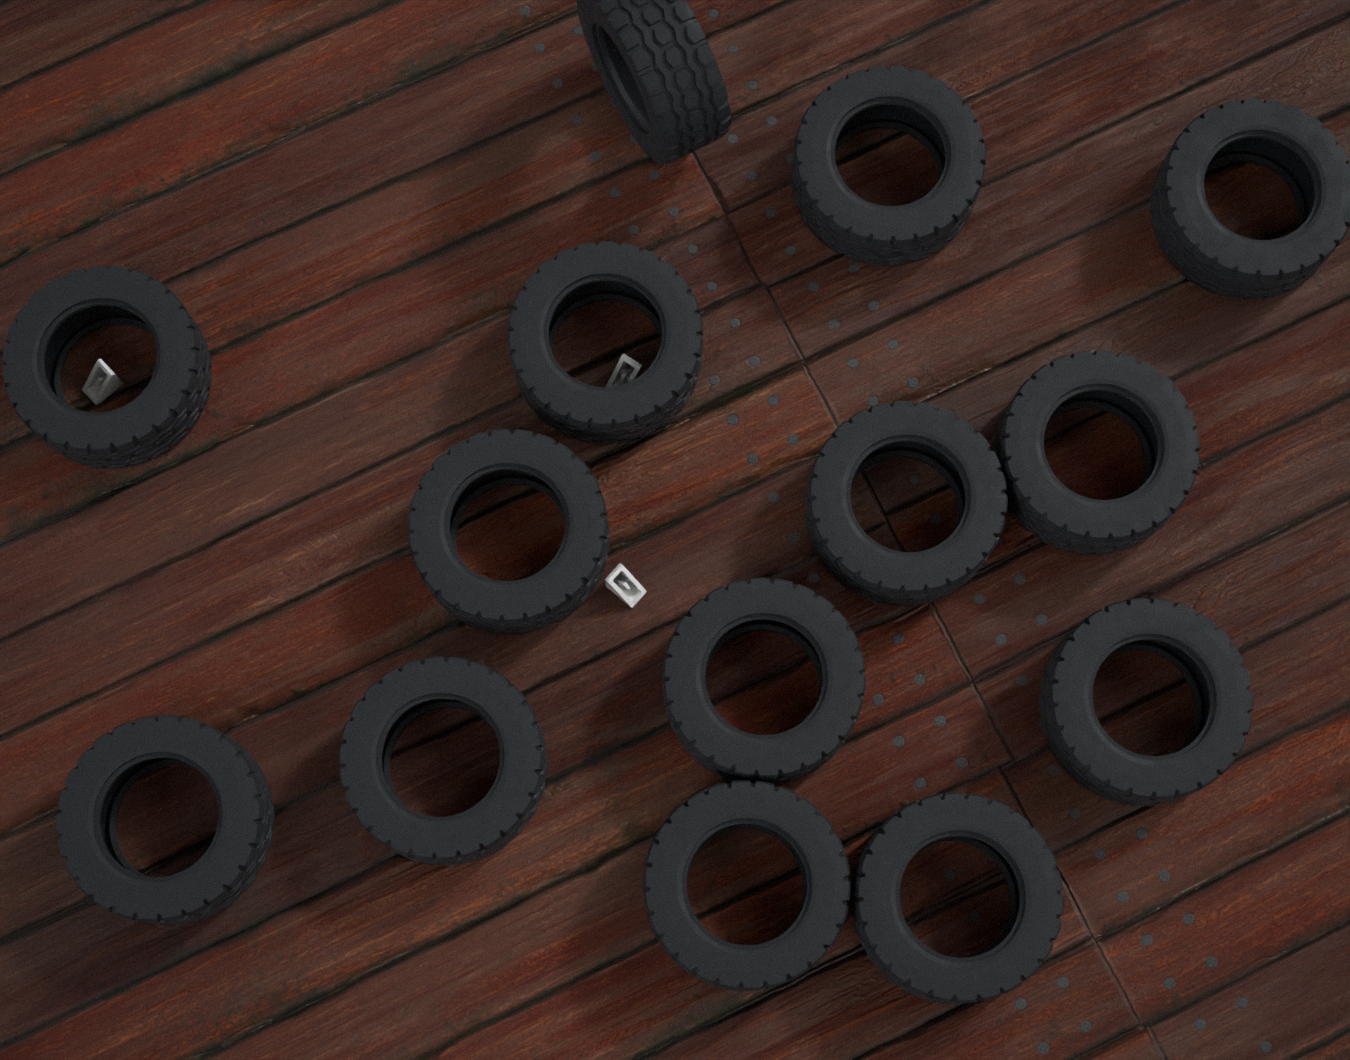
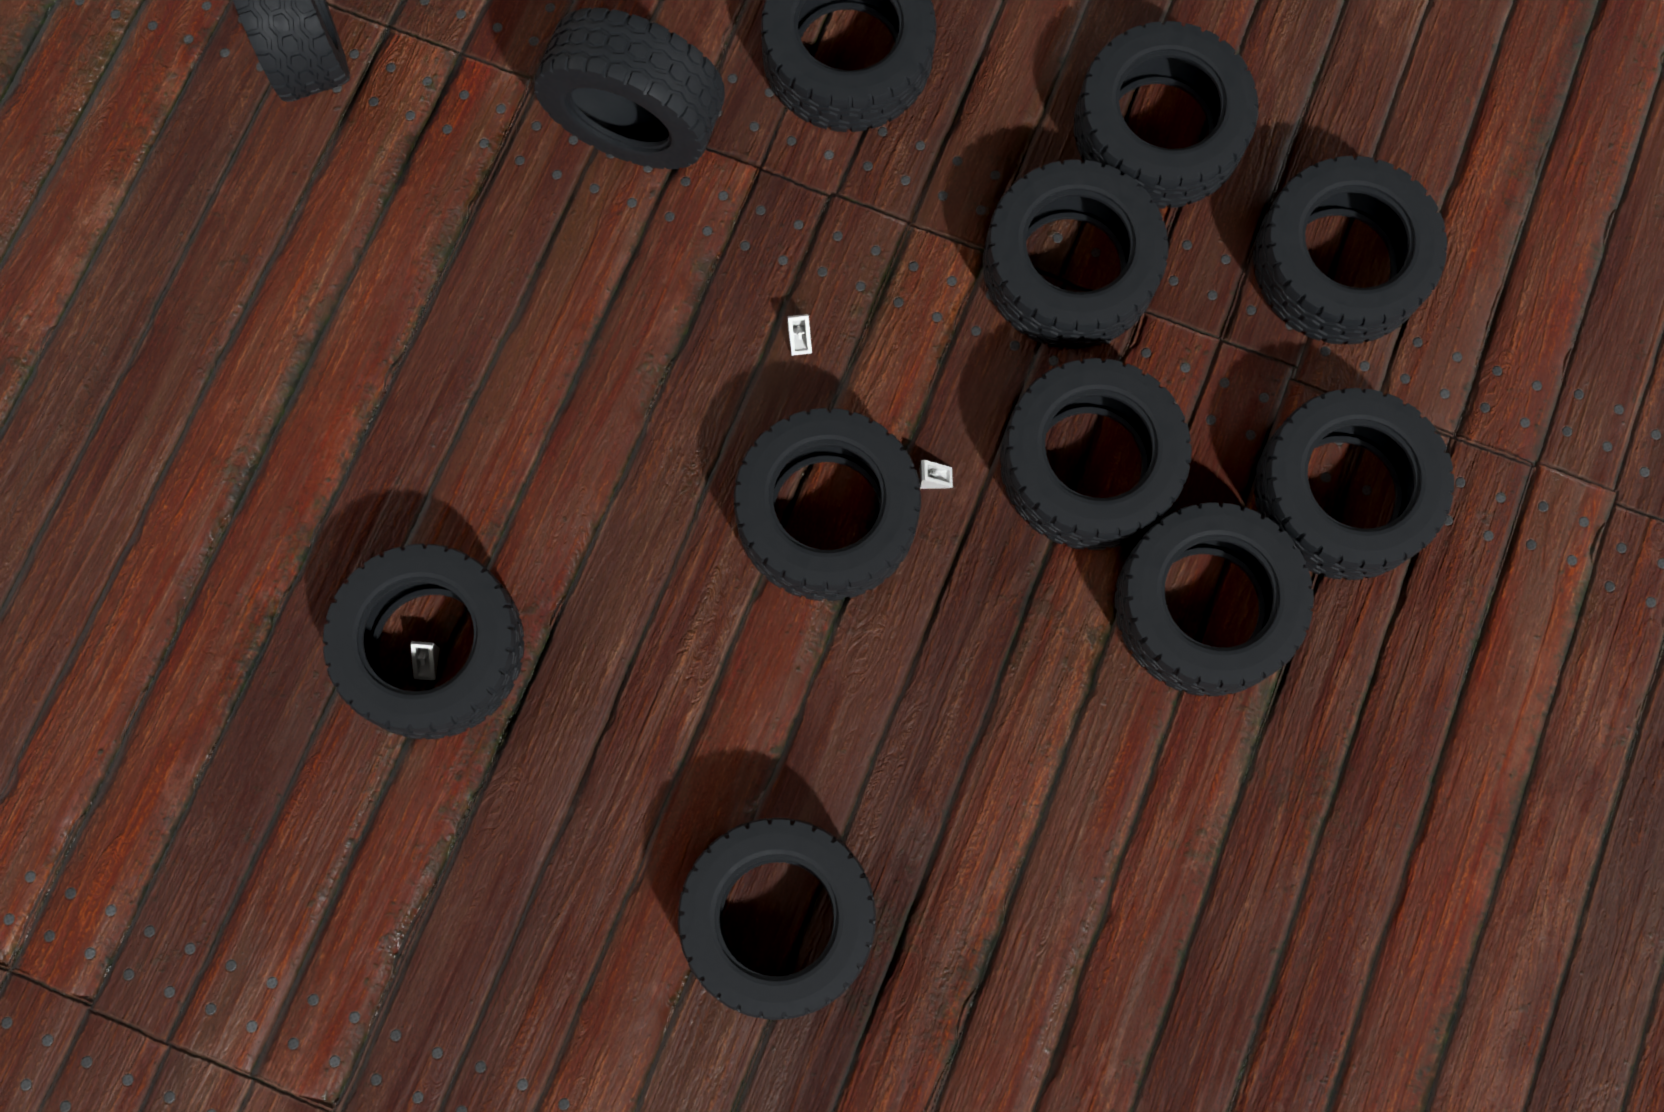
camera: 45 degrees left, 0 degrees up
(384, 715) = (951, 632): black tyre -> none
(596, 275) = (765, 256): black tyre -> none

